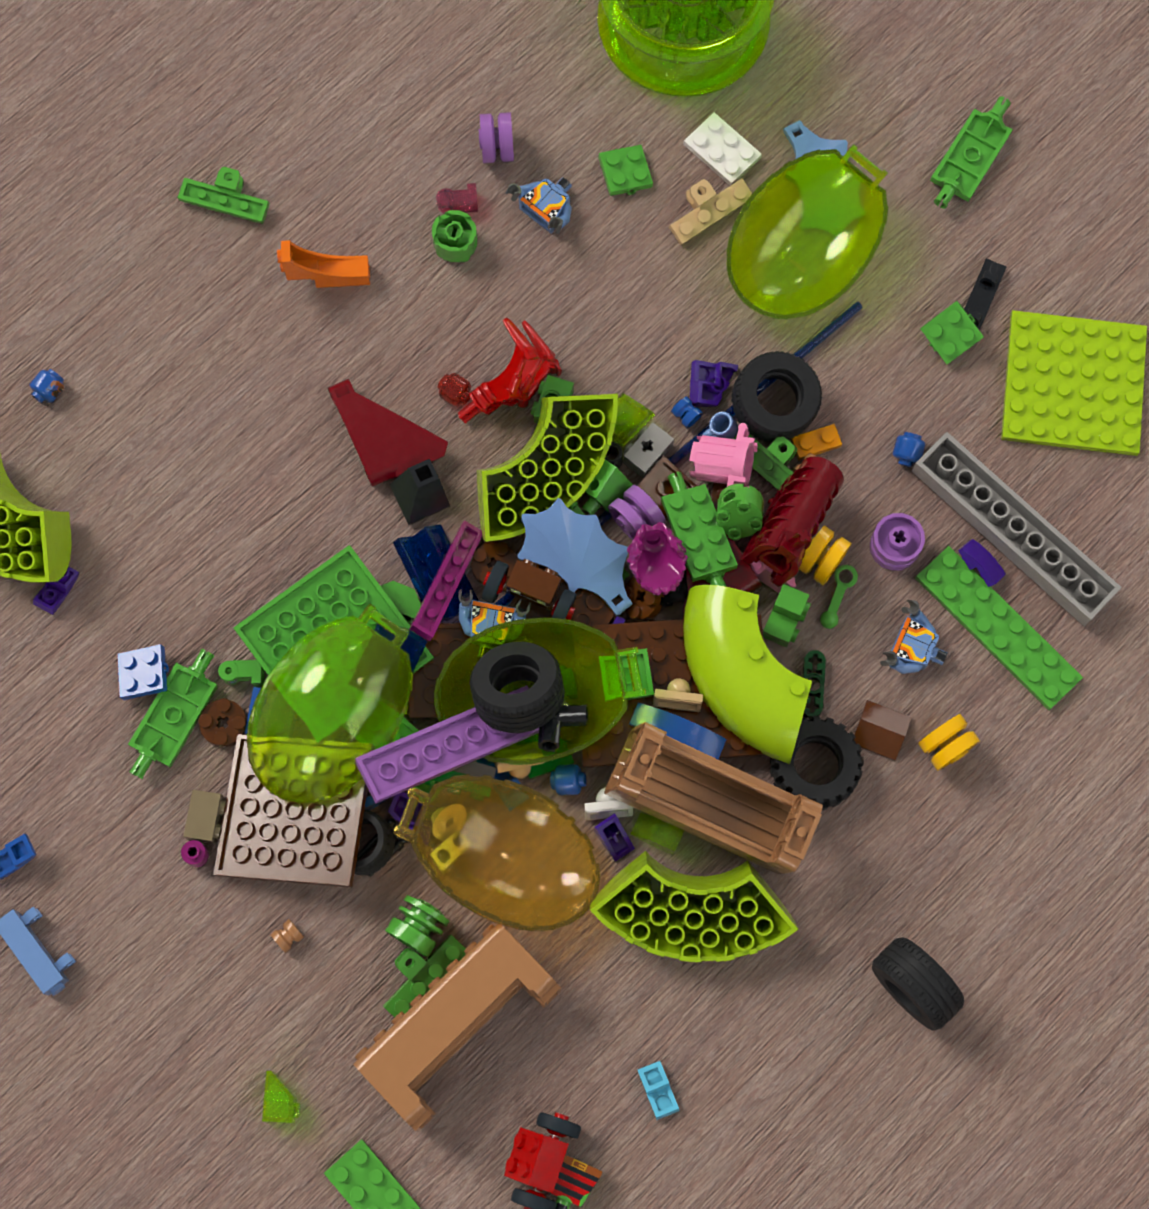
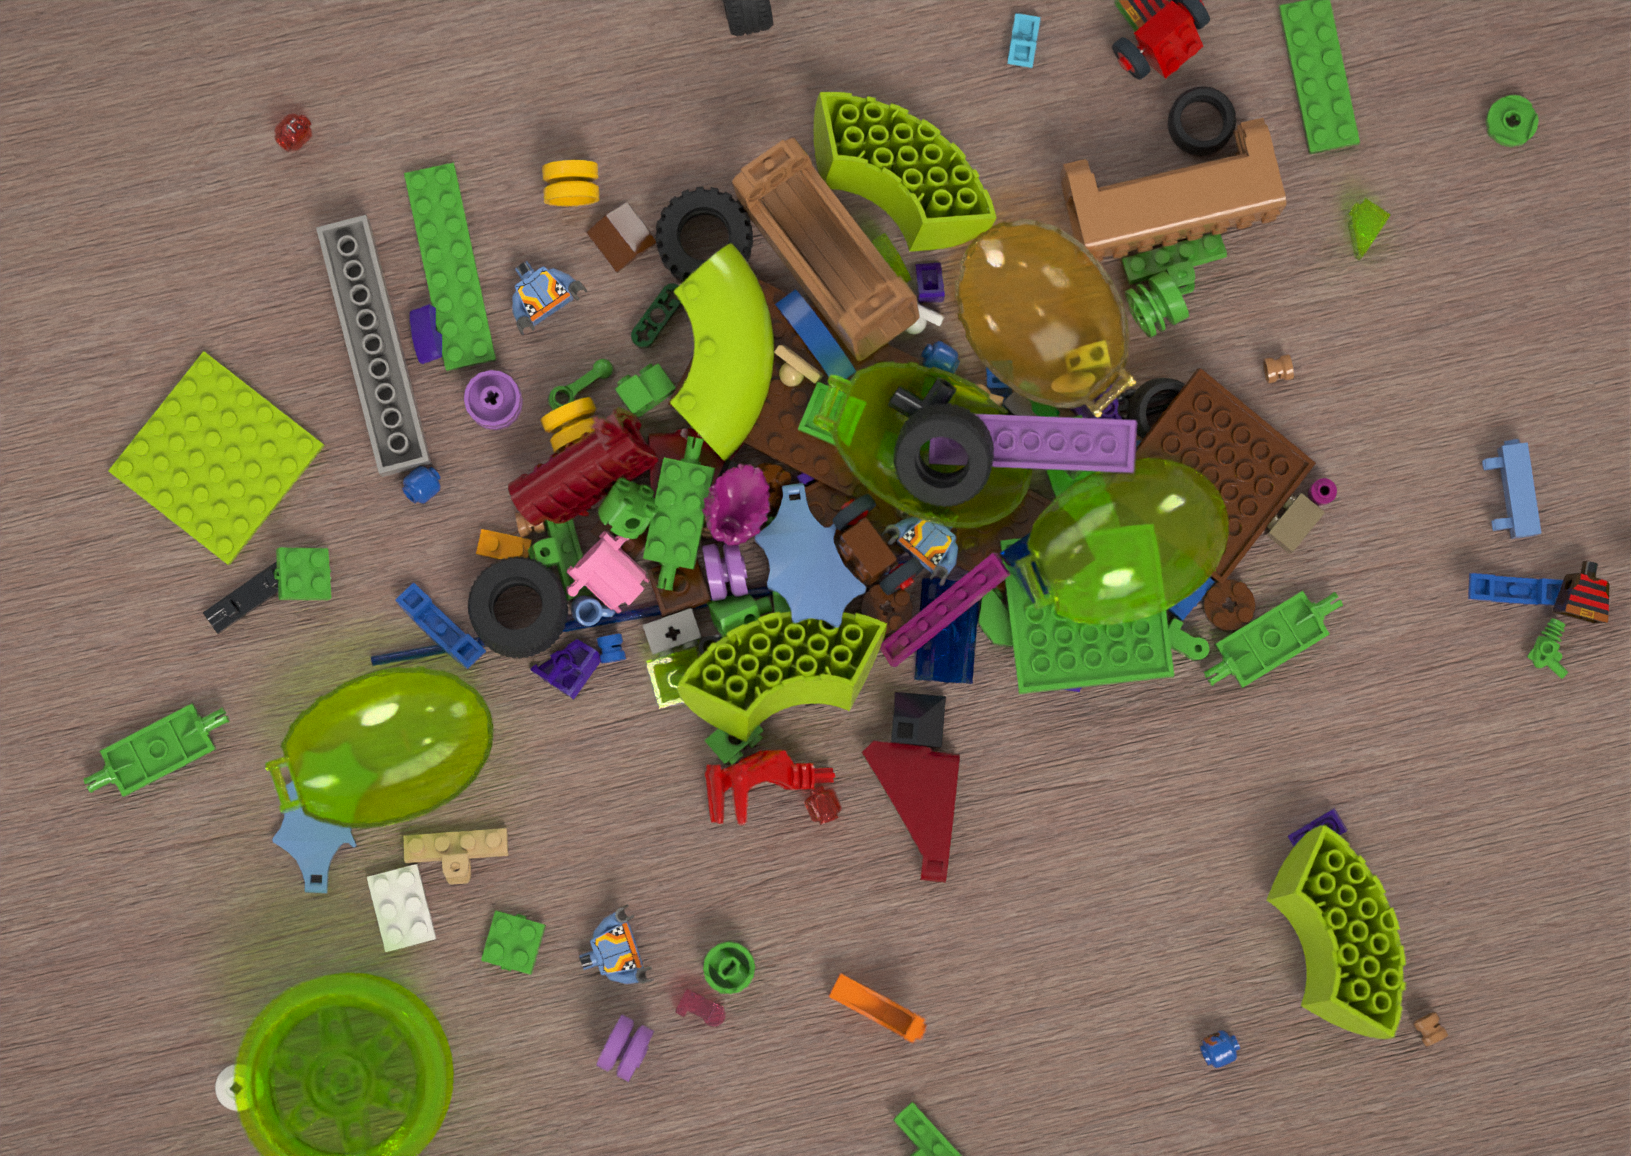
camera: 150 degrees left, 10 degrees up
(142, 672) = (1279, 697): plate -> none
(442, 1114) = (1214, 98): none -> black tyre
(826, 354) = (439, 627): none -> blue slope

